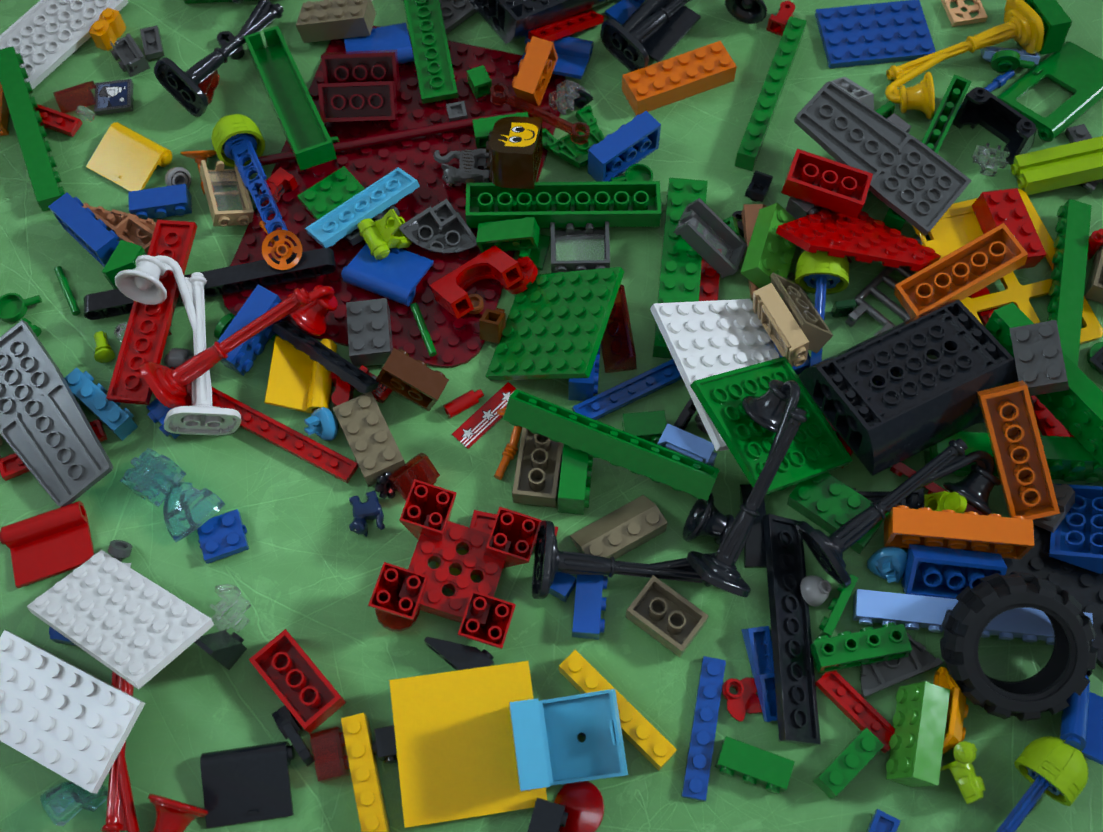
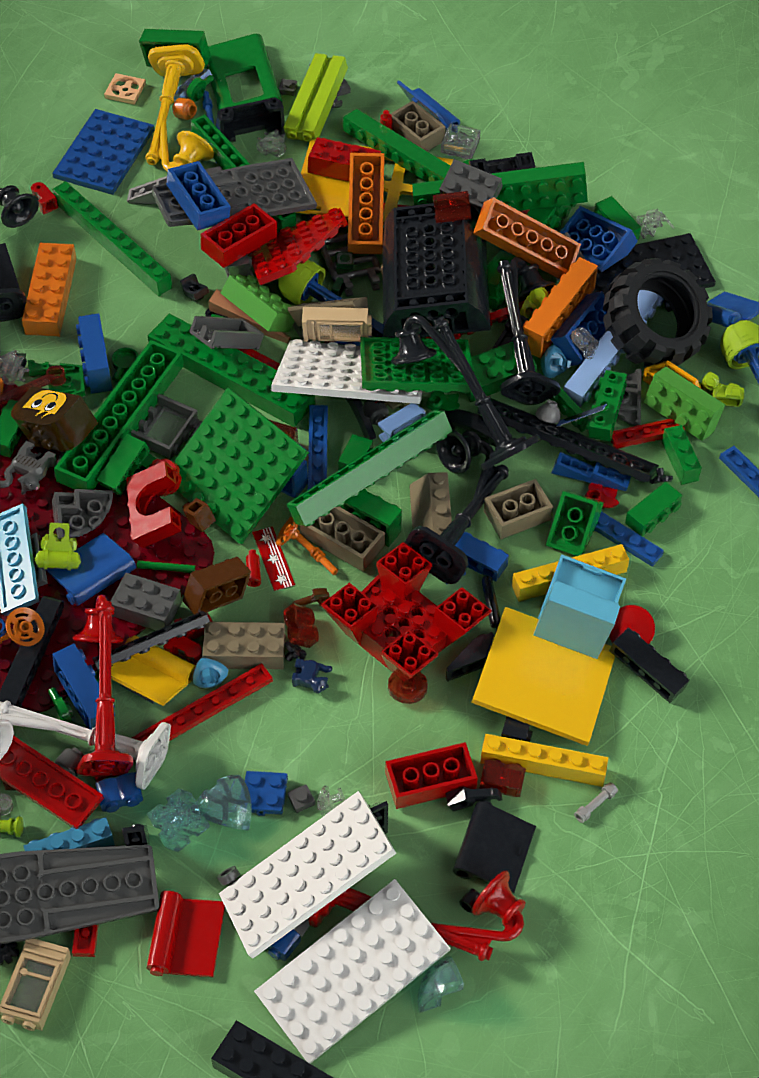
camera: 65 degrees left, 10 degrees down
(117, 449) = (136, 835): none -> black slope
(178, 788) = (468, 900): none -> black hose
(230, 572) = (301, 798): none -> dark grey plate
(455, 471) = (319, 595): none -> reddish brown bar
(542, 642) = (491, 601): none -> black axle
(682, 684) = (574, 523): none -> green slope
(801, 753) = (660, 477): none -> black plant
(825, 626) = (581, 415): none -> black sticker
(841, 120) = (198, 195): none -> blue brick
(882, 295) = (344, 260): none -> dark green tile
(924, 575) = (584, 342): none -> clear plate
(975, 65) = (184, 108): none -> orange head
(992, 352) = (452, 206): none -> clear red panel

